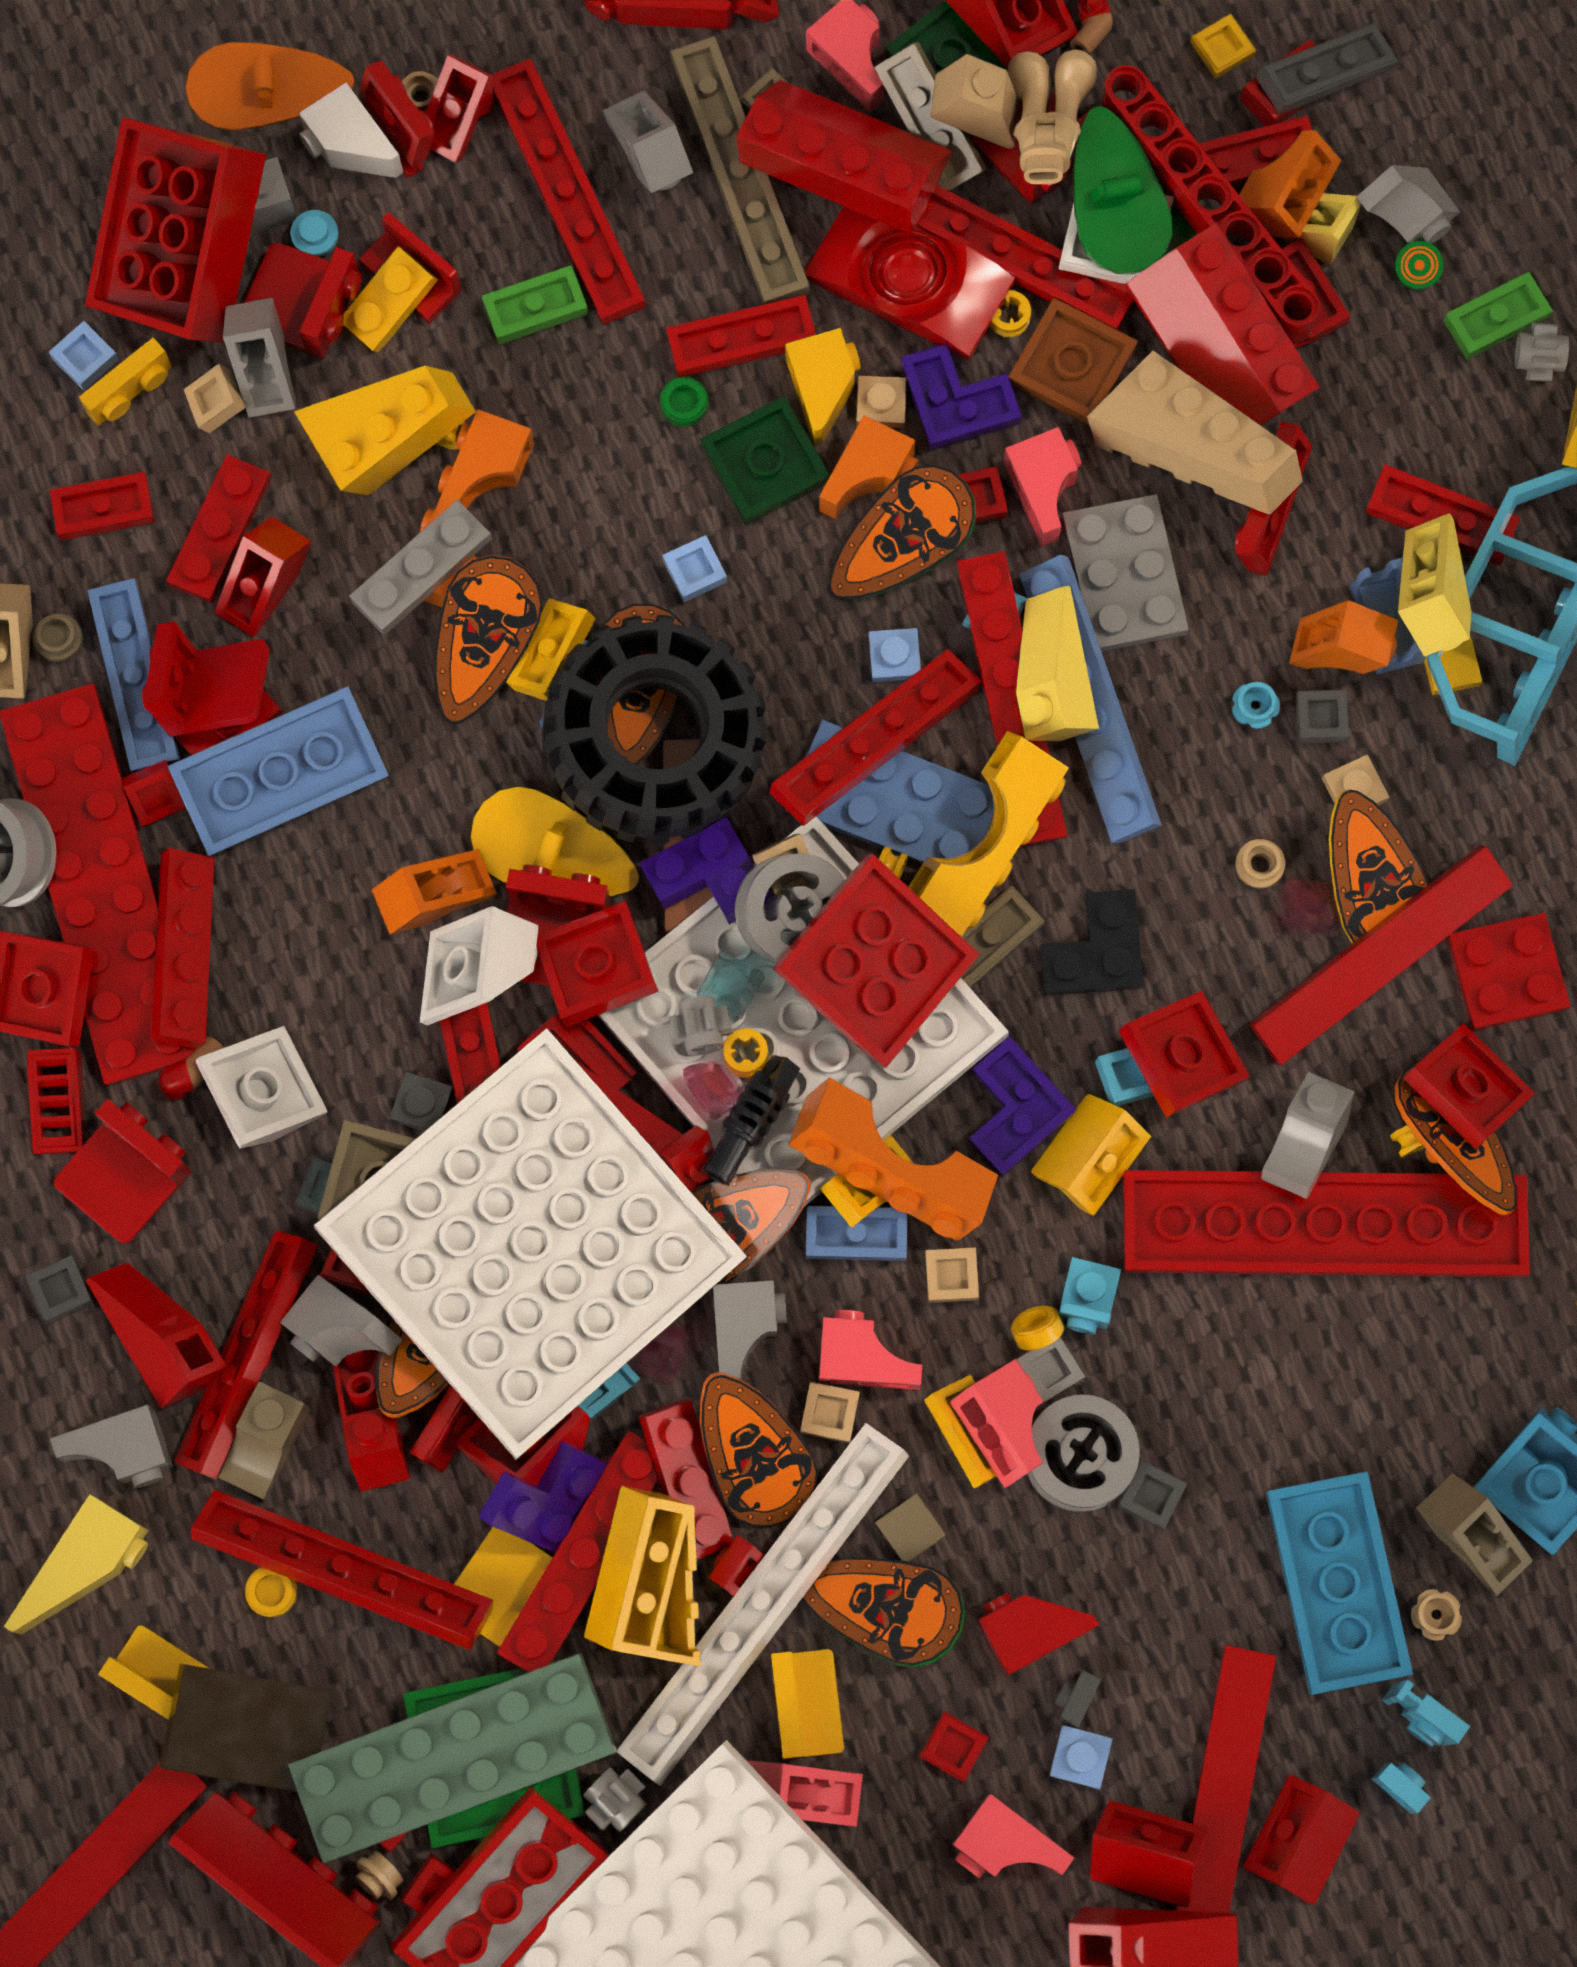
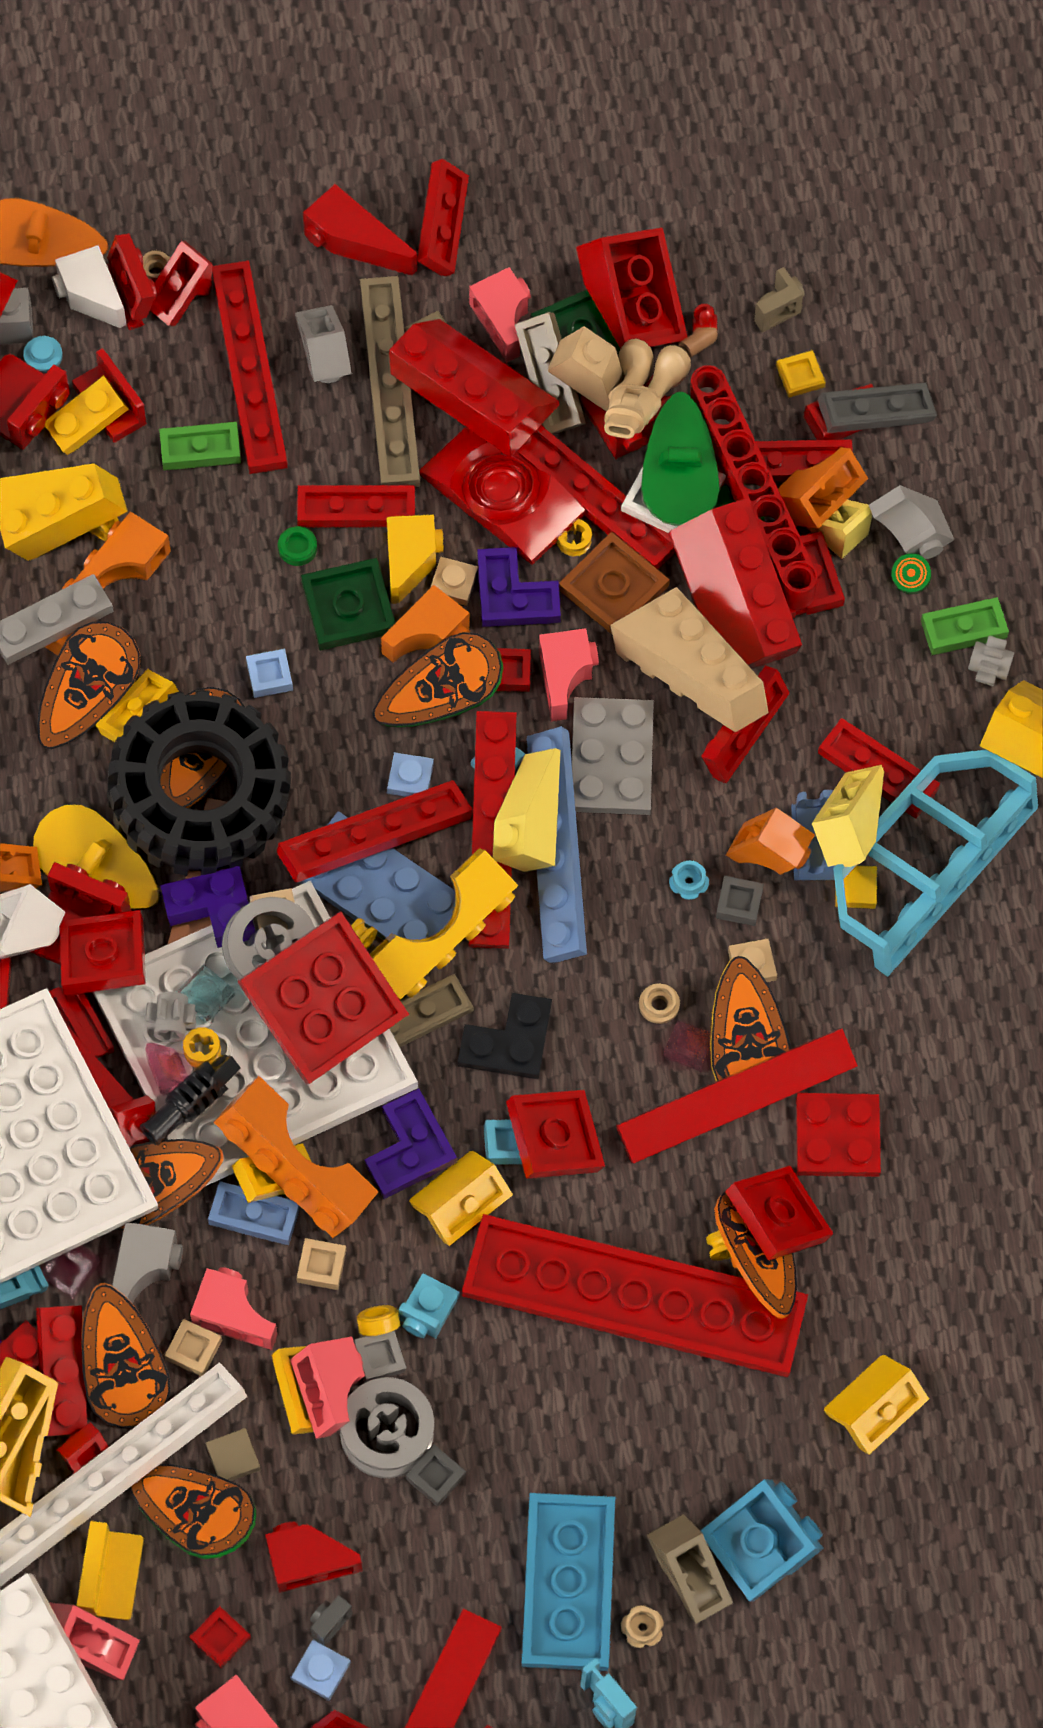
camera: 10 degrees right, 10 degrees down
(1308, 1135) = (641, 1217): light grey arch -> none

